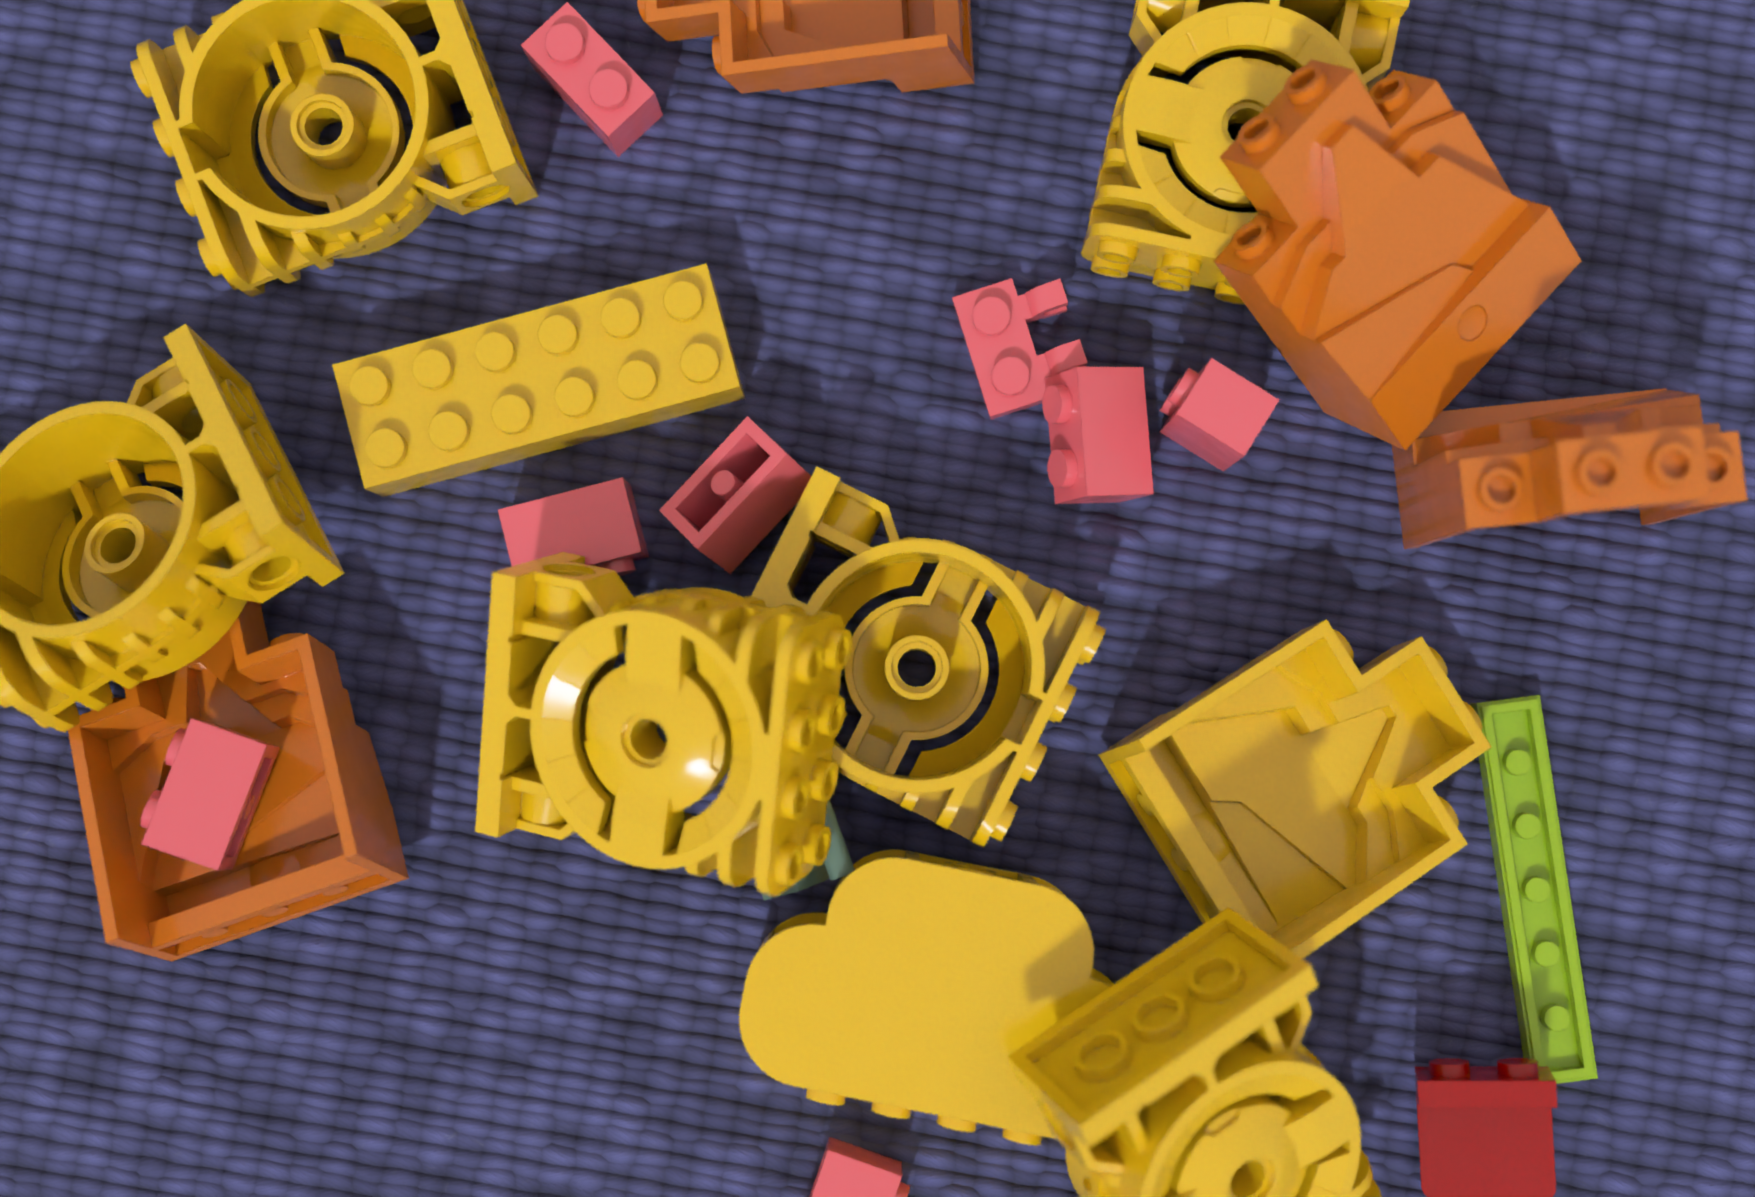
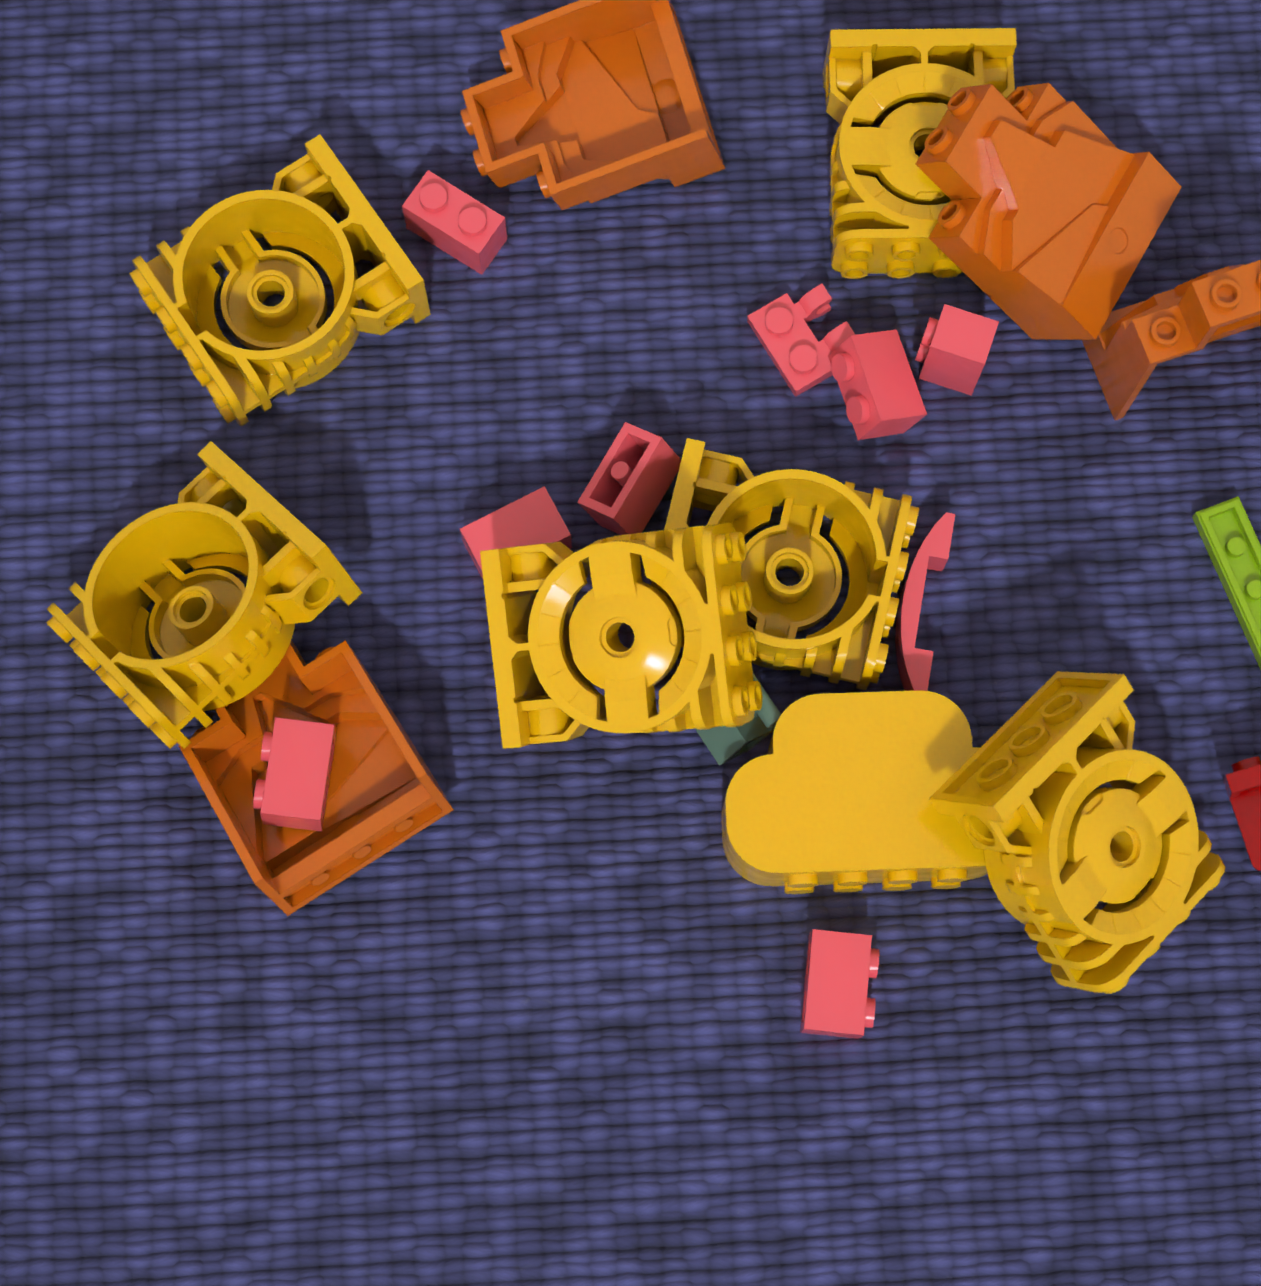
camera: 20 degrees left, 10 degrees down
(538, 381) = (468, 436): yellow brick -> none
(1049, 826) = (933, 554): none -> coral slope
(1303, 783) = (1082, 583): yellow panel -> none

